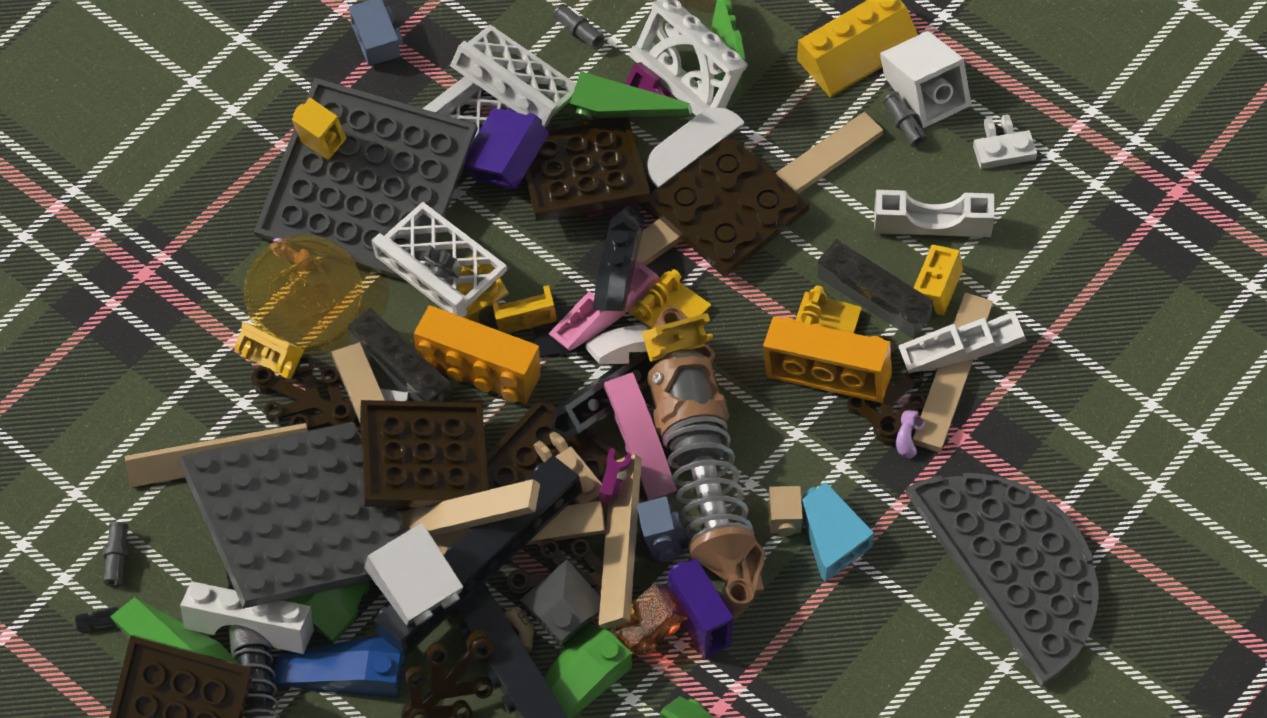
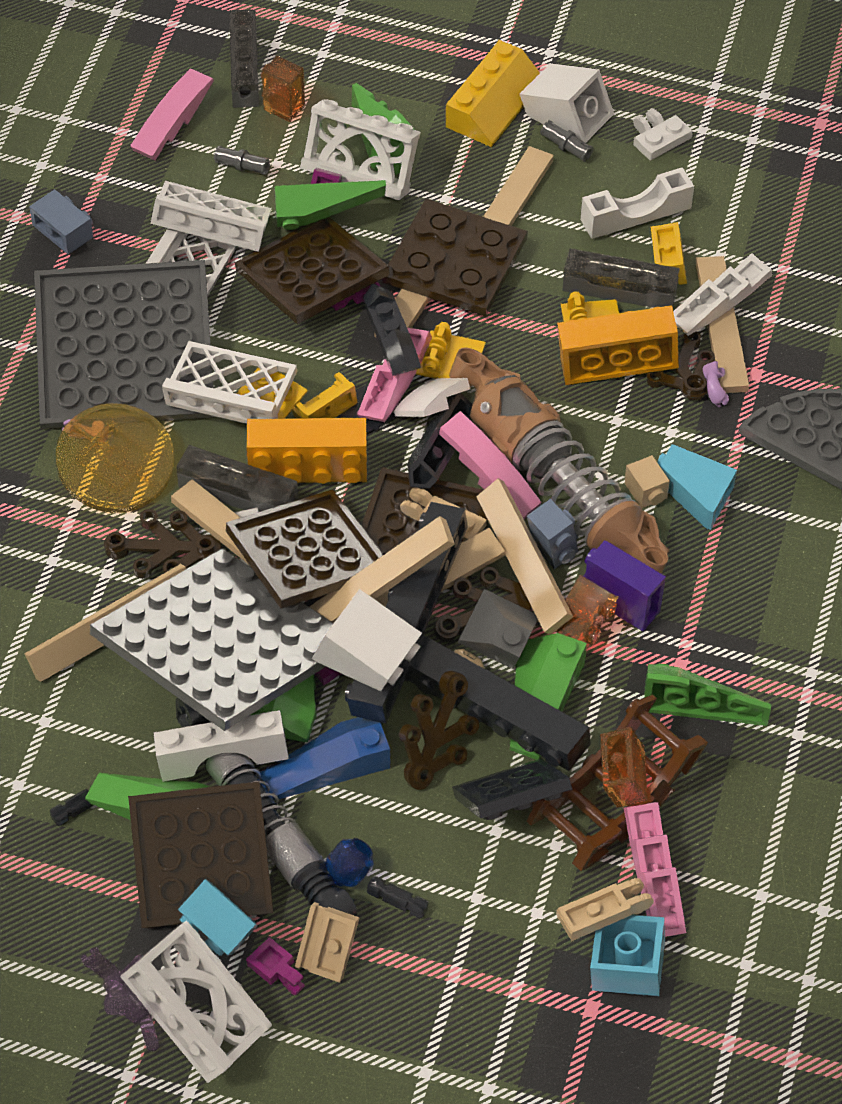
camera: 25 degrees left, 5 degrees down
(115, 554) = (59, 743): dark grey pin -> none
(268, 350) = (111, 515): yellow hinge -> none
(318, 128) = (65, 307): yellow brick -> none
(441, 263) = (241, 379): dark grey plate -> none
(505, 147) = (237, 274): dark purple brick -> none
(611, 484) = (489, 508): magenta plate -> none
(676, 336) = (483, 367): yellow hinge -> none
(691, 143) = (398, 217): white brick -> none

